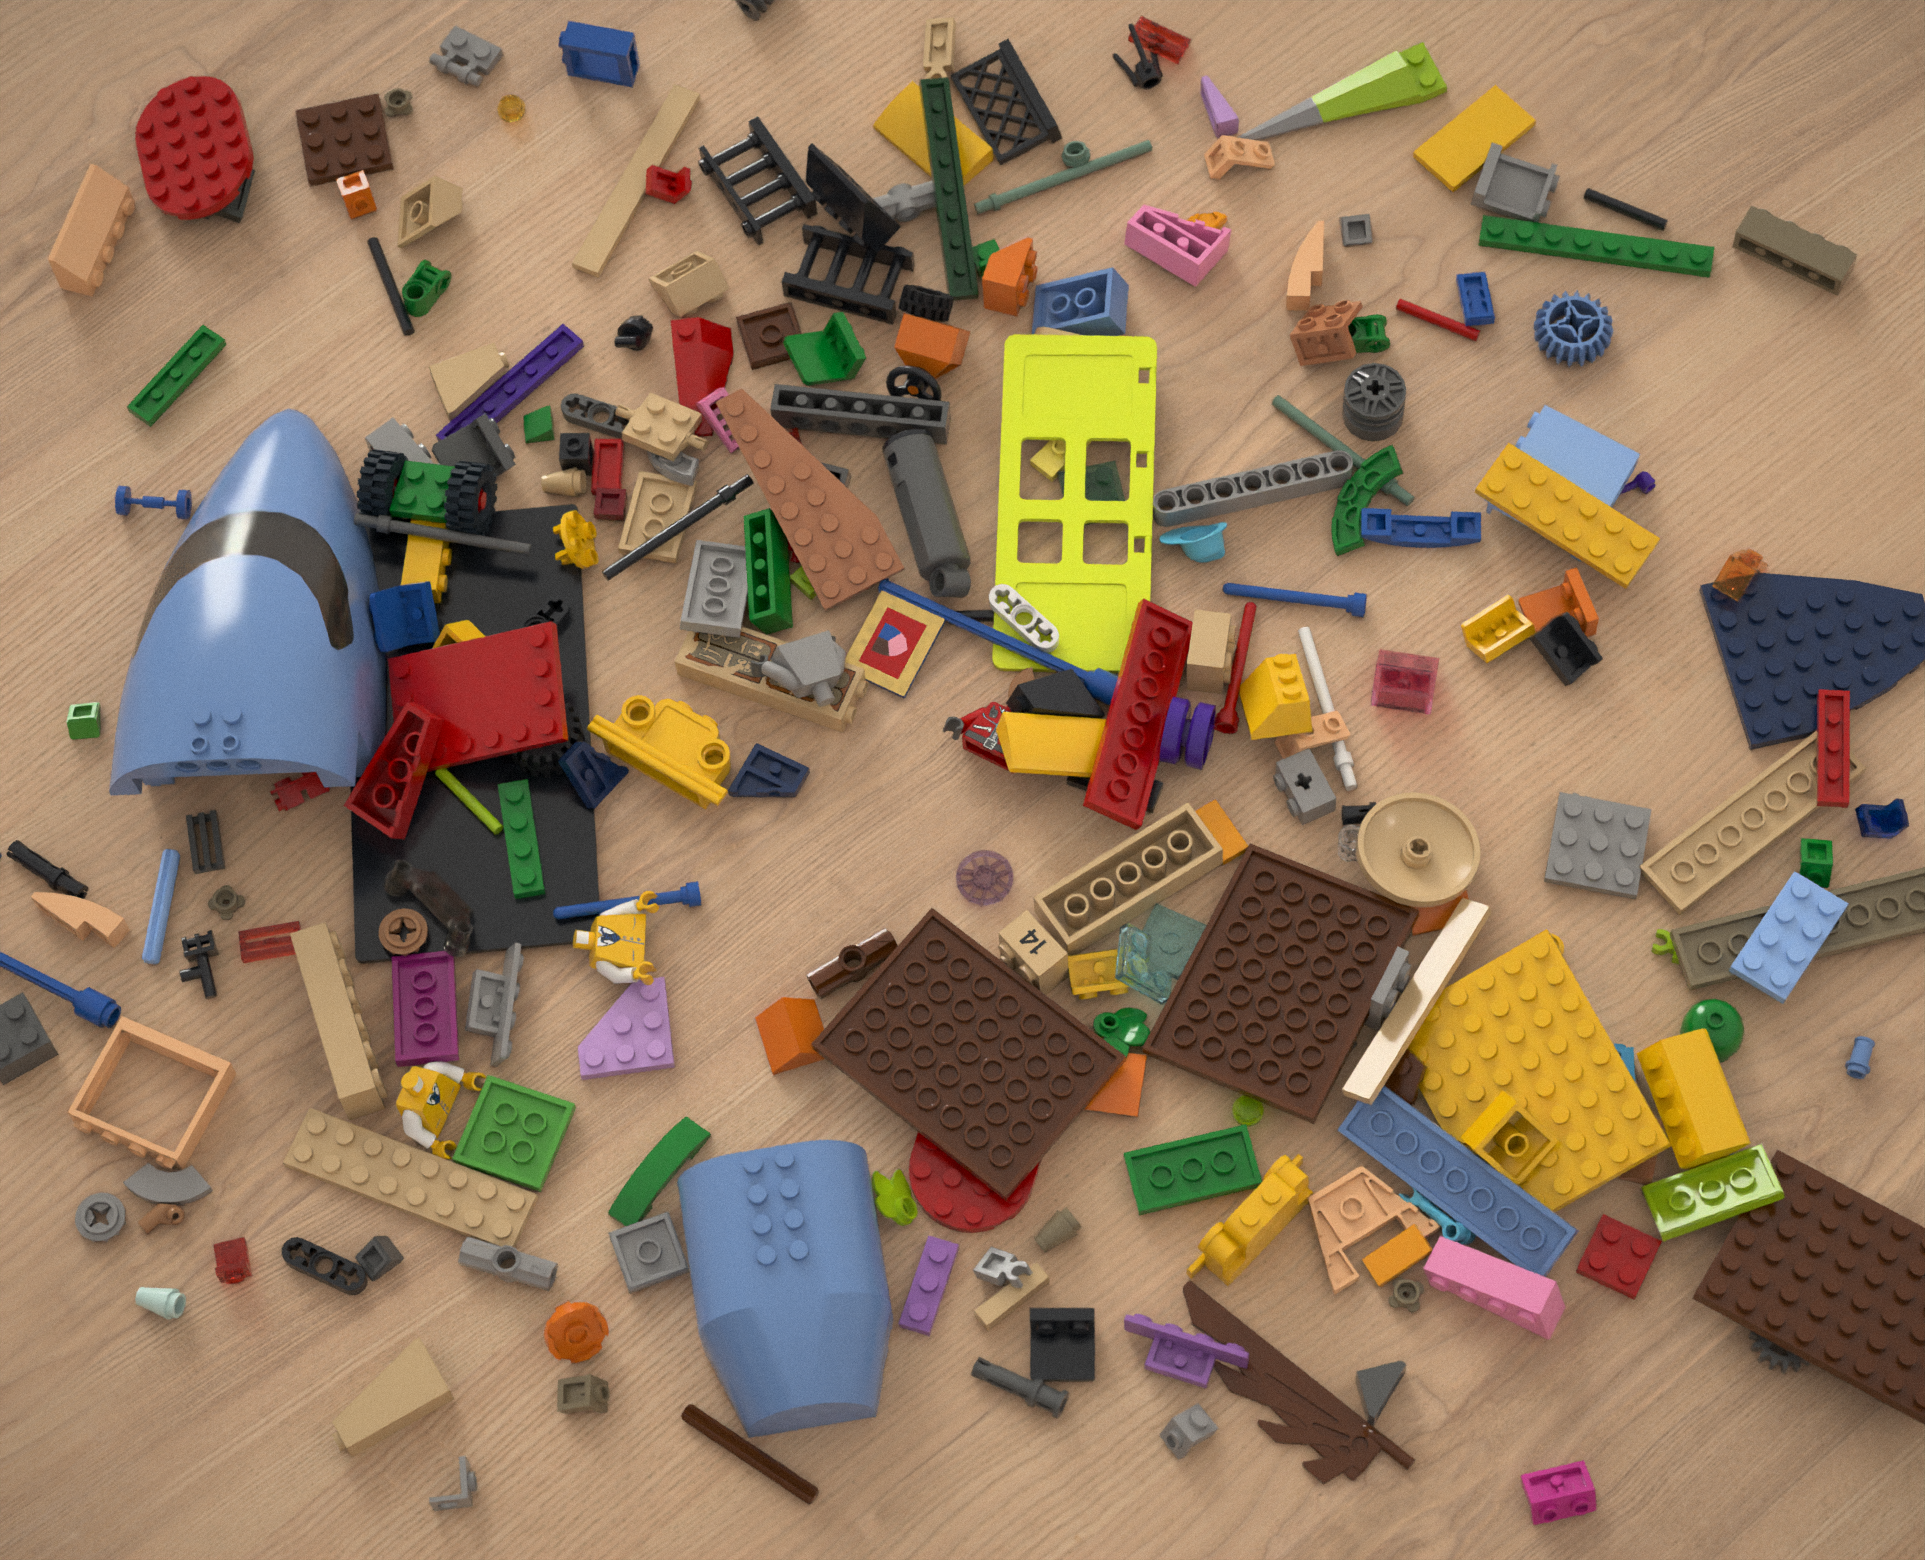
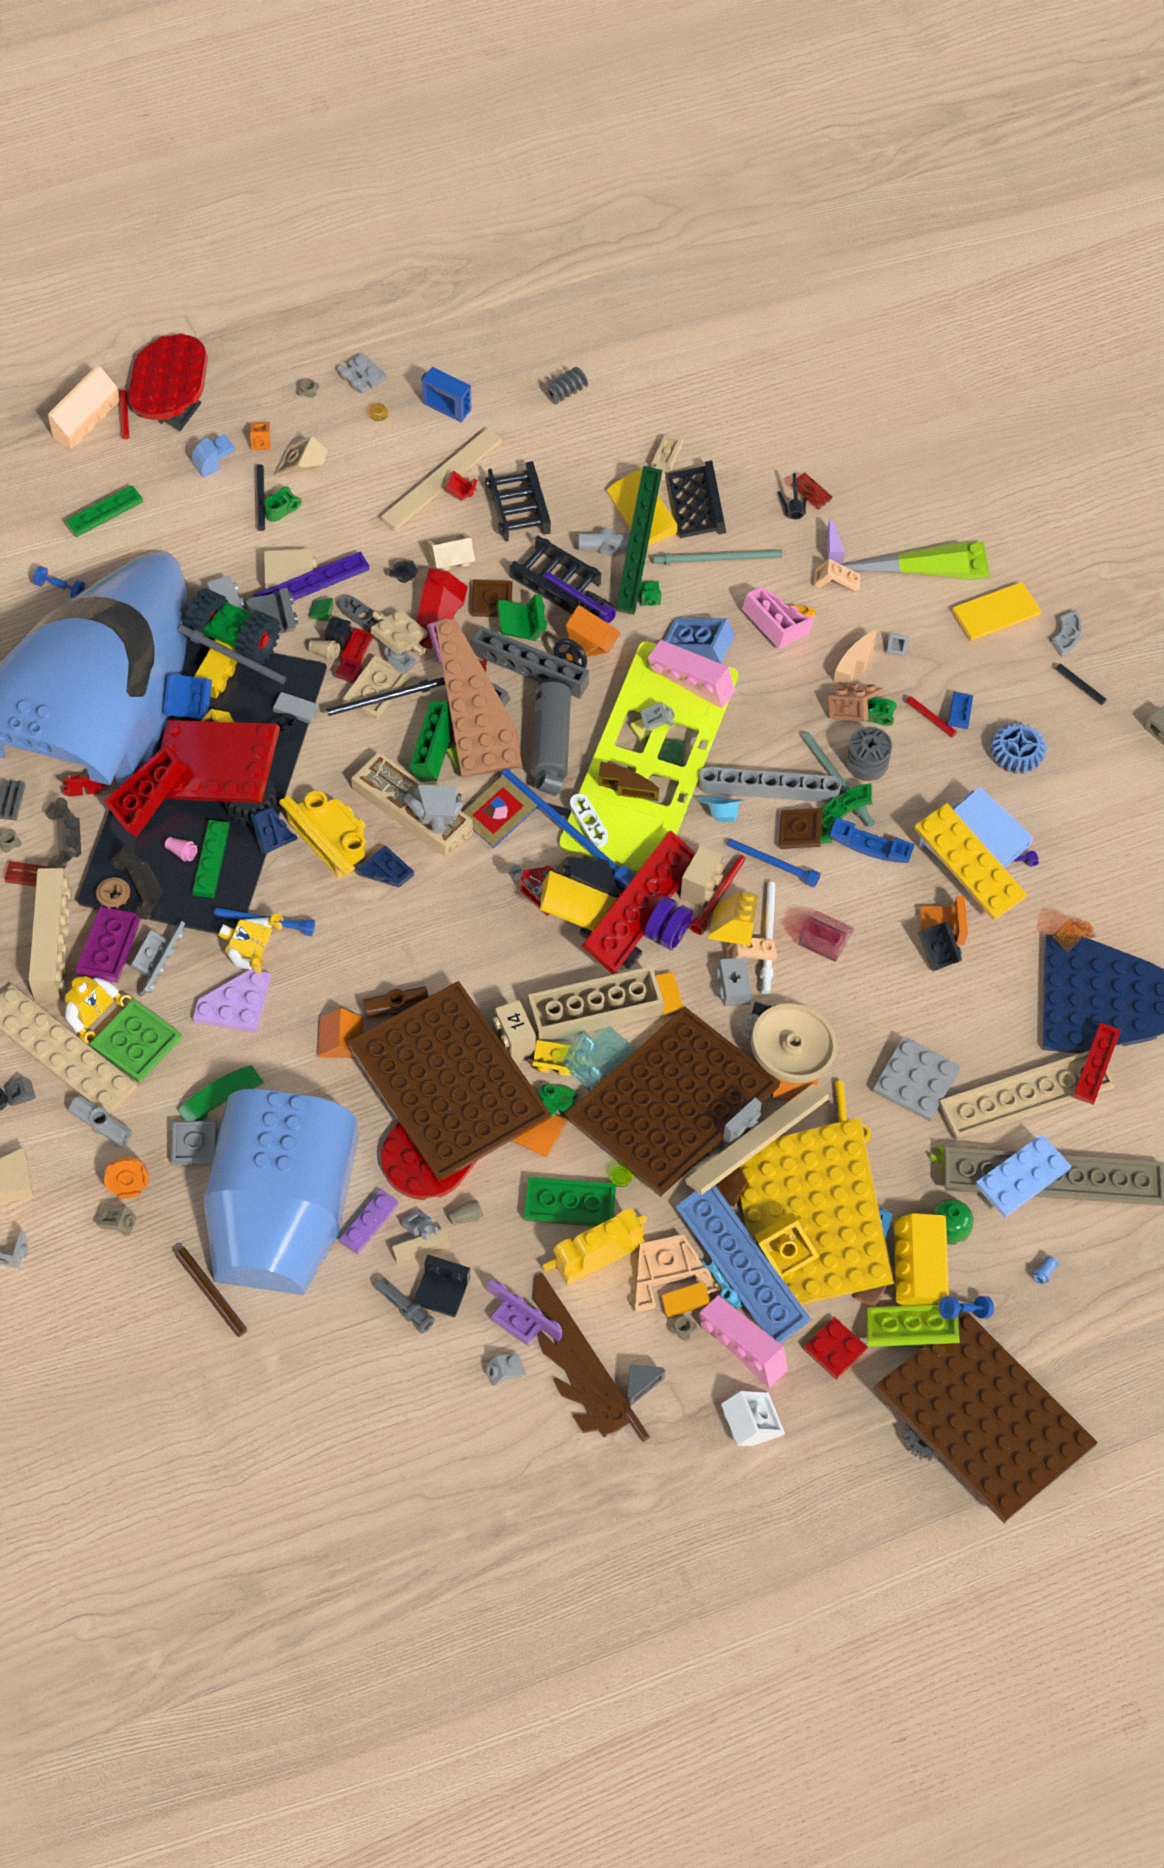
camera: 10 degrees right, 5 degrees down
(150, 221) = (124, 414): none -> red bar
(295, 243) = (207, 454): none -> medium blue brick
(306, 866) = (68, 833): none -> clear smoke plate
(344, 139) = (265, 400): reddish brown plate -> none
(469, 800) = (187, 823): lime bar -> none
(475, 837) = (183, 849): none -> bright pink cone
(563, 581) = (300, 708): none -> light grey tile
(577, 539) = (317, 685): yellow plate -> none
(716, 590) = (394, 742): light grey plate -> none
(848, 201) = (570, 528): black slope -> none
(894, 1197) = (366, 1157): lime plate -> none
(944, 312) = (605, 613): none -> dark purple piece
(984, 878) = (503, 975): wheel -> none
(1008, 277) = (658, 605): orange slope -> none
(1059, 547) = (627, 781): none -> reddish brown slope
(1067, 439) = (657, 716): none -> light grey bracket
(1075, 154) = (730, 544): sand green plate -> none
(1095, 361) = (693, 672): none -> bright pink wedge
(1317, 538) = (800, 828): none -> reddish brown tile
(1496, 629) = (898, 920): yellow bracket -> none
(1507, 912) = (840, 1099): none -> yellow bar
(1514, 186) = (1011, 647): light grey panel -> none
(1543, 1390) = (752, 1418): none -> white slope
(1559, 1492) = (738, 1489): dark pink bracket -> none
(1584, 140) = (1069, 633): none -> light grey tile
(1596, 246) = (1053, 701): green plate -> none
(1757, 1153) = (950, 1307): none -> blue wheel
(1816, 861) = (1060, 1134): green bracket -> none
(1882, 820) = (1115, 1121): clear blue bracket -> none

